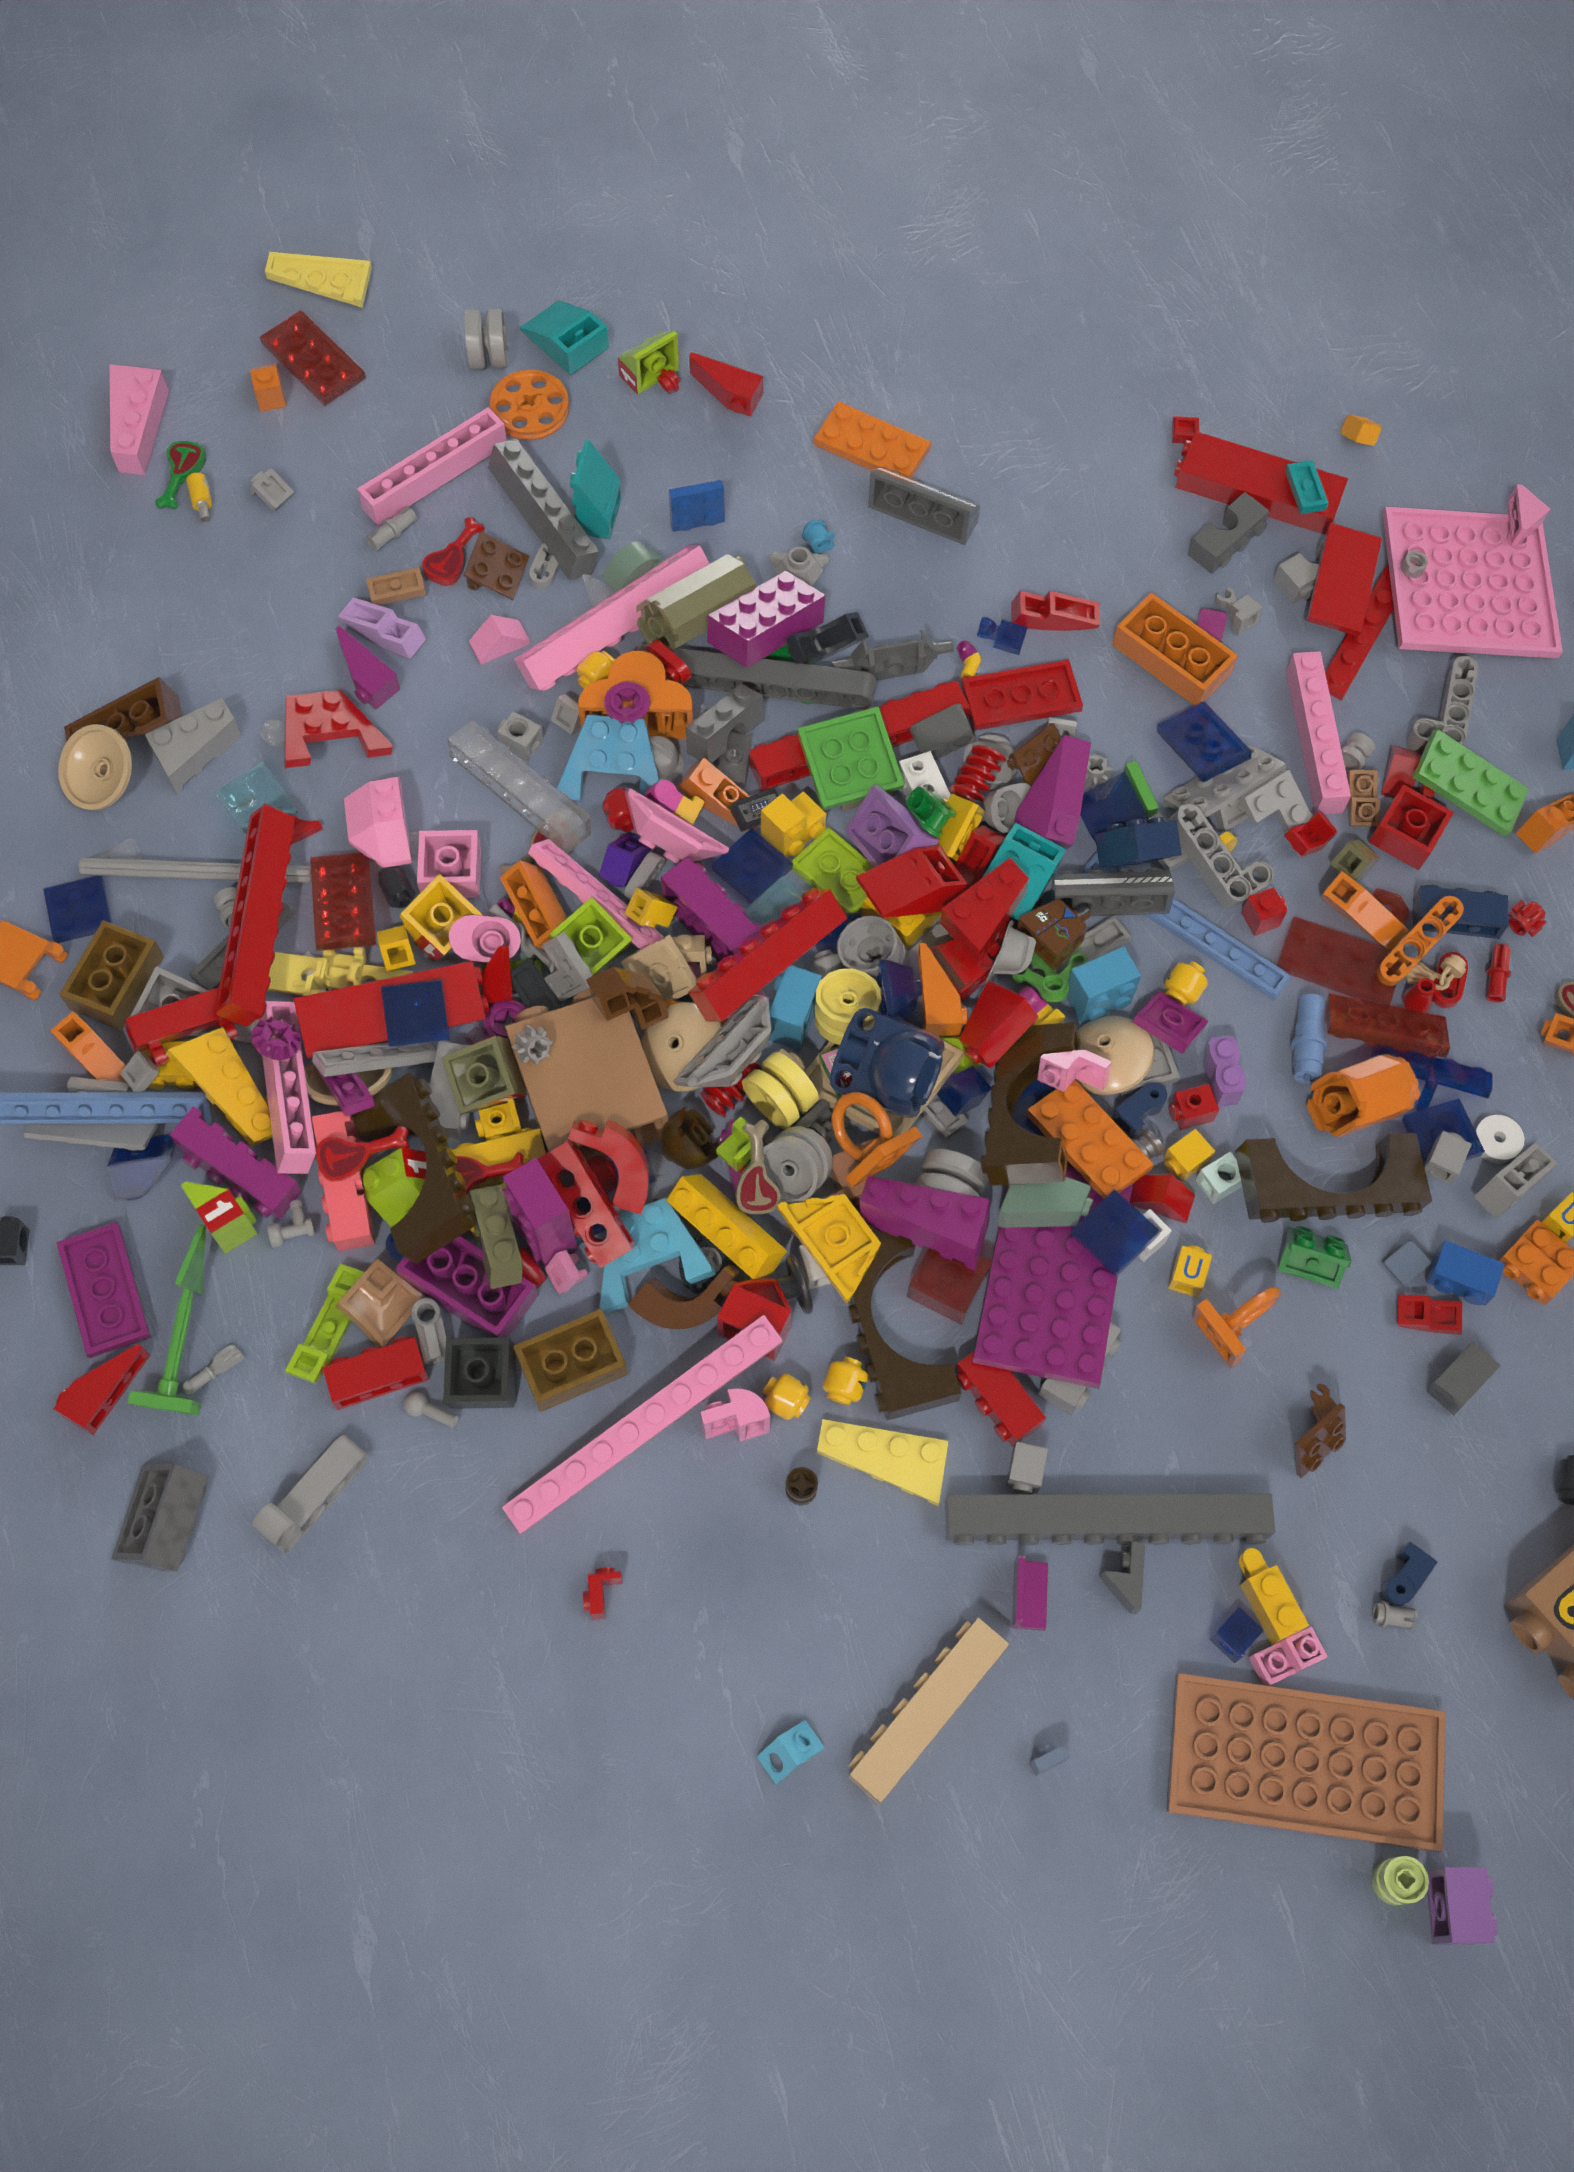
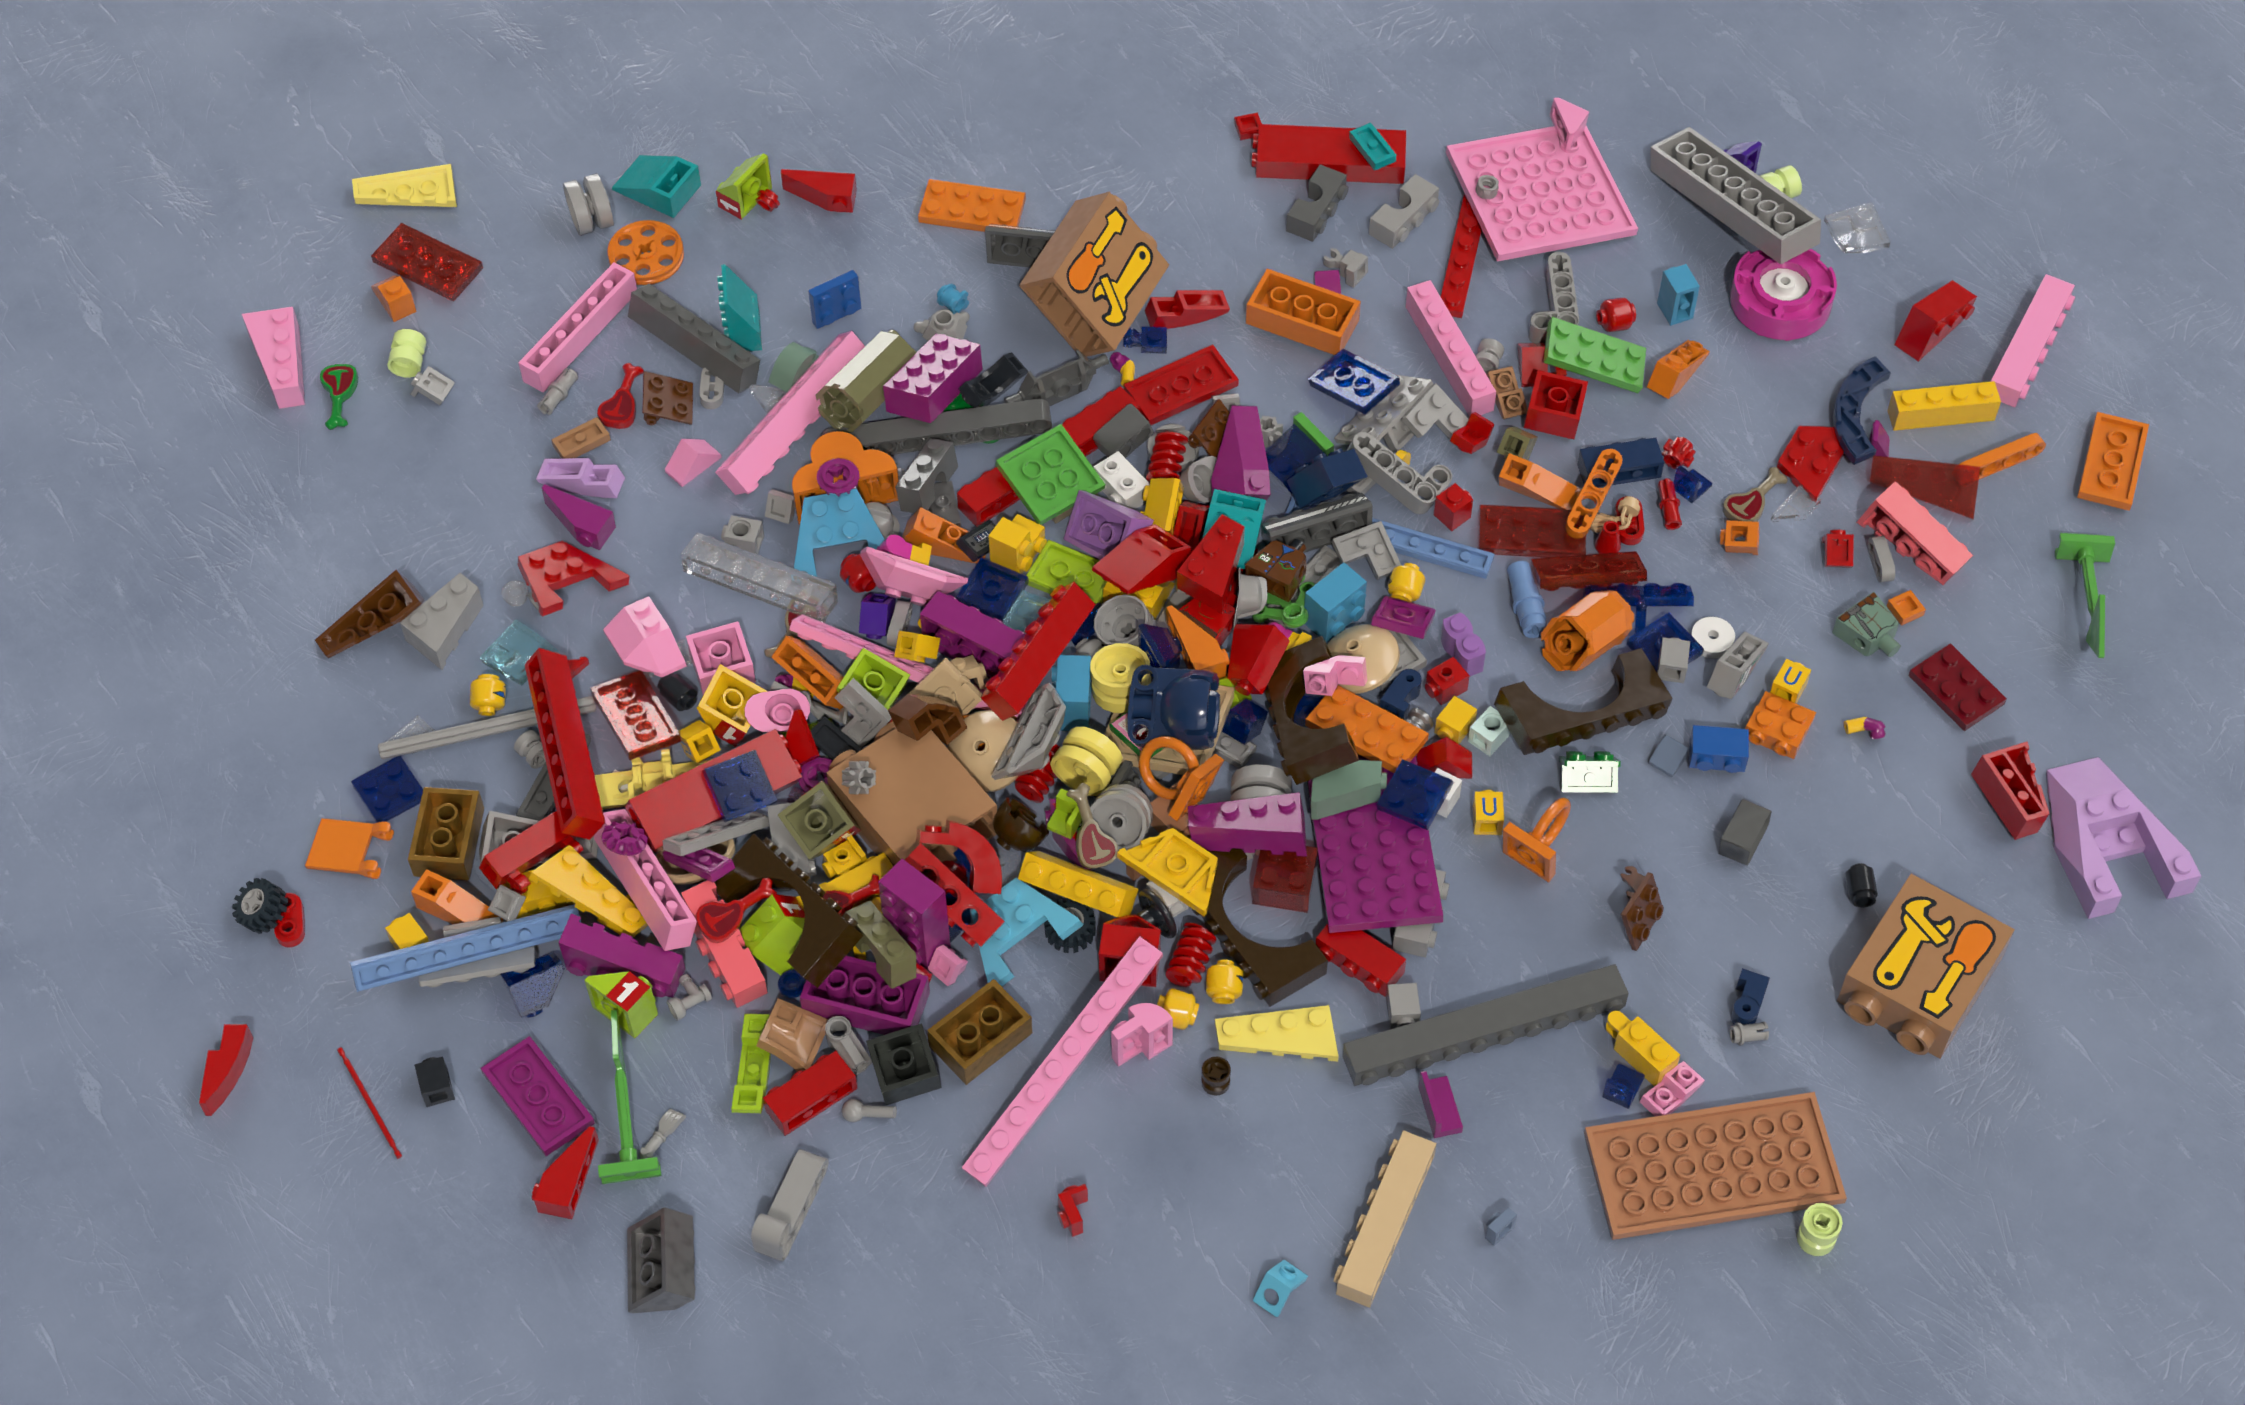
camera: 15 degrees left, 10 degrees down
(36, 1074) = (405, 932): none -> yellow brick
(95, 767) = (349, 662): tan dish -> none
(199, 495) = (366, 408): yellow piece -> none
(207, 835) = (487, 694): none -> yellow head
(257, 448) = (406, 353): none -> yellowish green wheel
(593, 668) = (791, 460): yellow head -> none
(672, 1311) = (1052, 968): reddish brown arch -> none
(674, 667) = (868, 437): red plate -> none
(819, 1339) = (1190, 955): none -> red piece
(930, 810) = (1136, 496): green piece -> none
(967, 551) = (1095, 274): none -> medium nougat brick
(1128, 1586) = (1518, 1071): dark grey slope -> none
(1163, 928) = (1369, 543): none -> light grey plate
(1344, 579) = (1431, 215): red tile -> none
(1361, 429) = (1403, 87): light orange slope -> none
(1394, 902) = (1562, 470): clear red arm -> none
(1429, 1315) = (1701, 793): red slope -> none
(1461, 1906) = (1873, 1231): medium lavender brick -> none
(1508, 743) = (1616, 314): none -> red head
(1526, 957) = (1687, 484): none -> clear blue bracket

